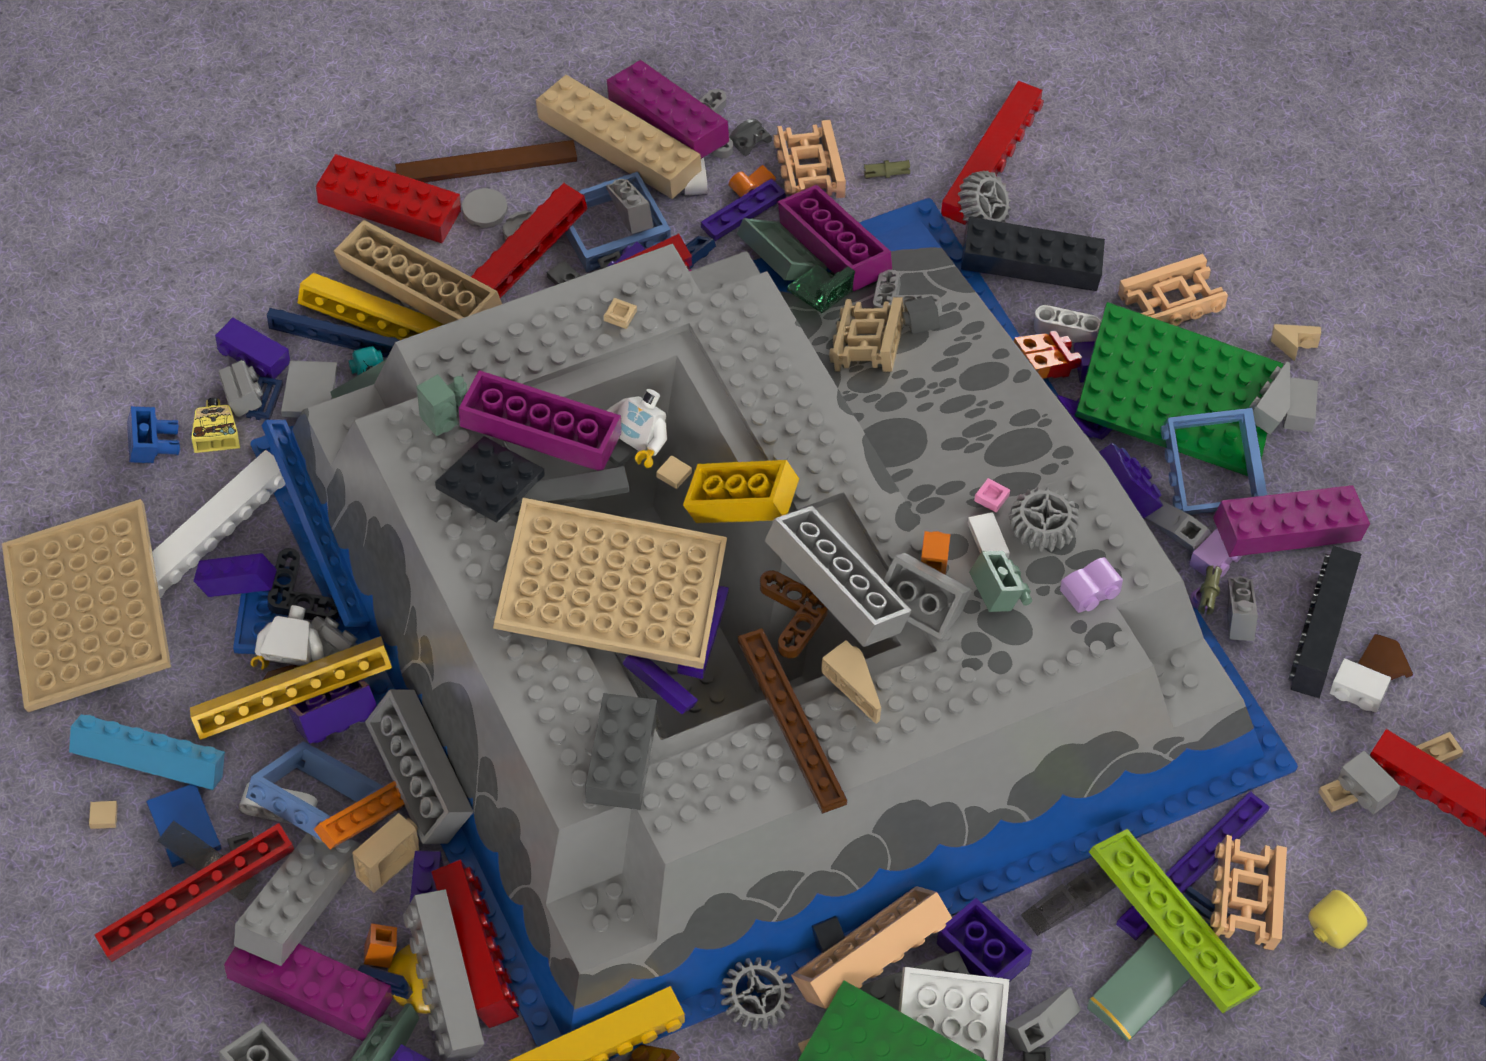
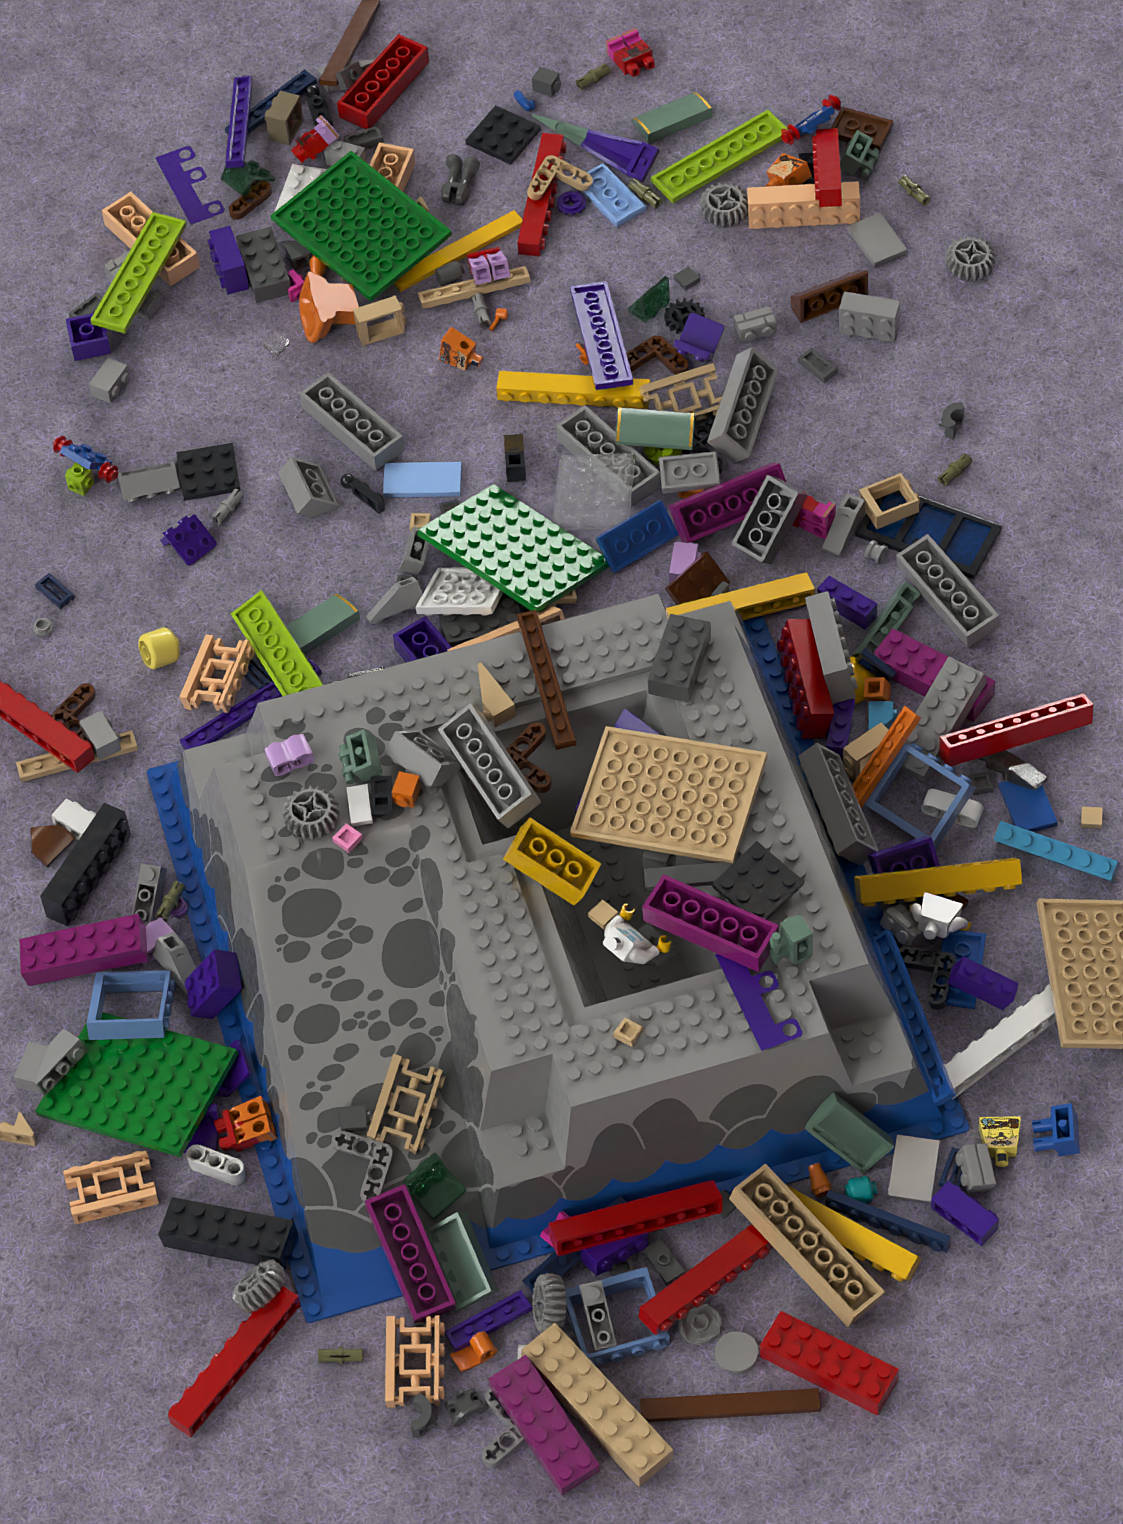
camera: 165 degrees left, 0 degrees up
(373, 909) = (882, 713): none -> dark azure slope
(474, 343) = (748, 995): none -> dark purple piece
(681, 211) = (549, 1301): none -> light grey gear
(790, 115) = (419, 1425): none -> dark grey piece
(962, 547) = (381, 795): none -> black slope
(1422, 829) = (70, 715): none -> reddish brown beam

